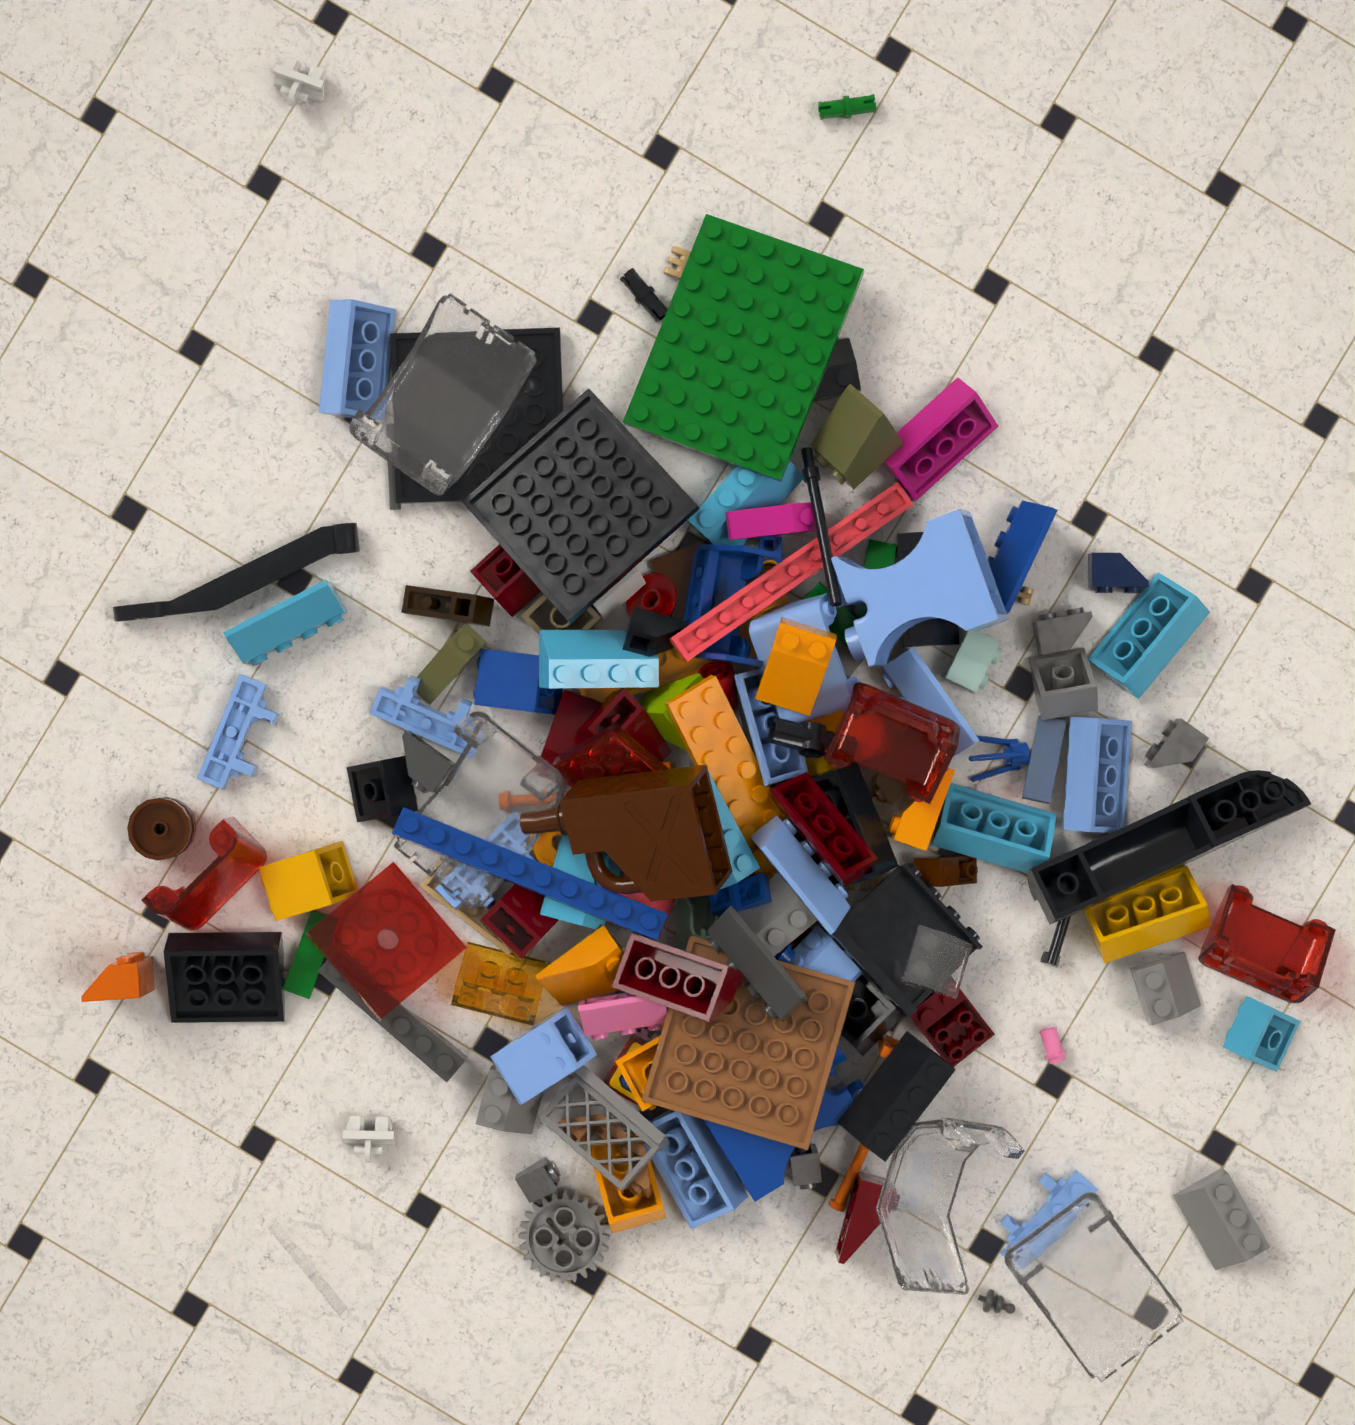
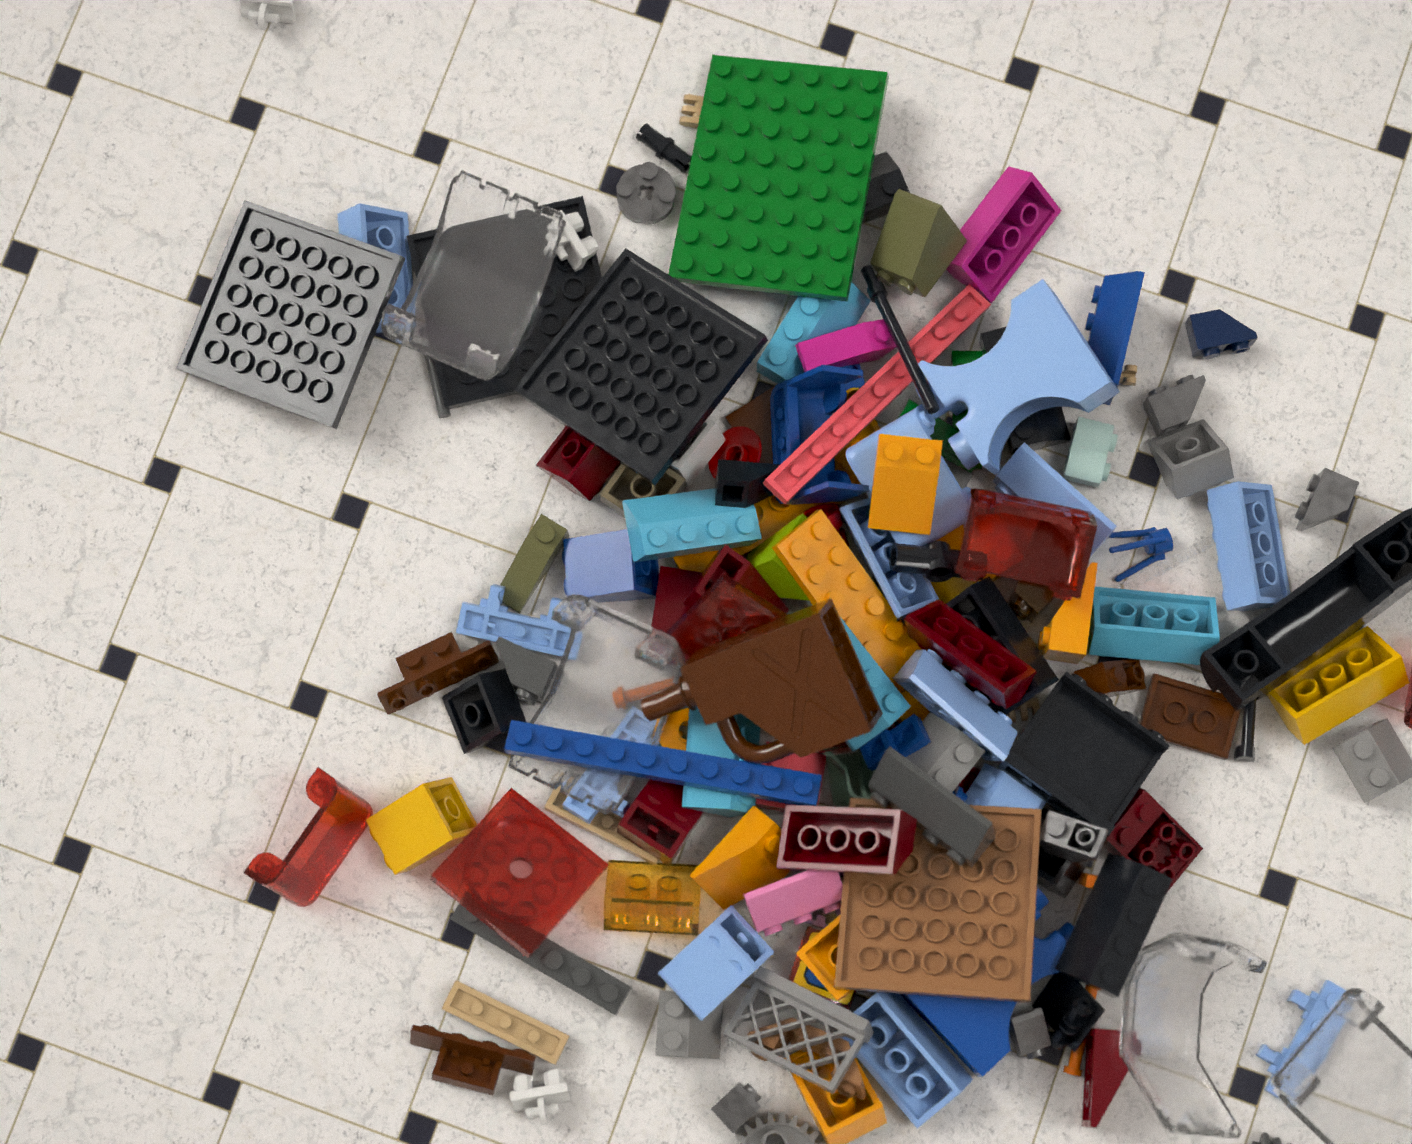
camera: 10 degrees left, 10 degrees down
(125, 979) = (235, 968): orange slope -> none
(145, 833) = (246, 780): reddish brown wheel -> none
(225, 753) = (307, 705): light blue hinge -> none
(225, 977) = (350, 949): black slope -> none
(251, 576) = (388, 457): black piece -> none
(270, 391) = (291, 314): none -> plate
(286, 622) = (349, 552): medium azure slope -> none
(306, 962) = (435, 920): green tile -> none
(312, 1096) = (468, 1061): none -> reddish brown bracket
(344, 740) = (433, 669): none -> reddish brown bracket
(350, 1067) = (505, 1022): none -> tan plate
(448, 605) = (520, 502): dark brown slope -> none
(539, 377) = (571, 246): none -> white hips
(604, 328) = (643, 210): none -> flat silver plate
(843, 1156) = (1068, 1011): none -> black hinge
(877, 1011) = (1071, 838): none -> flat silver slope
(936, 962) = (1124, 771): clear slope -> none
(1007, 916) = (1190, 716): none -> reddish brown tile
(1044, 760) = (1188, 542): sand blue tile -> none
(1052, 1045) = (1268, 847): bright pink pin -> none
(1148, 635) = (1269, 390): medium azure slope -> none

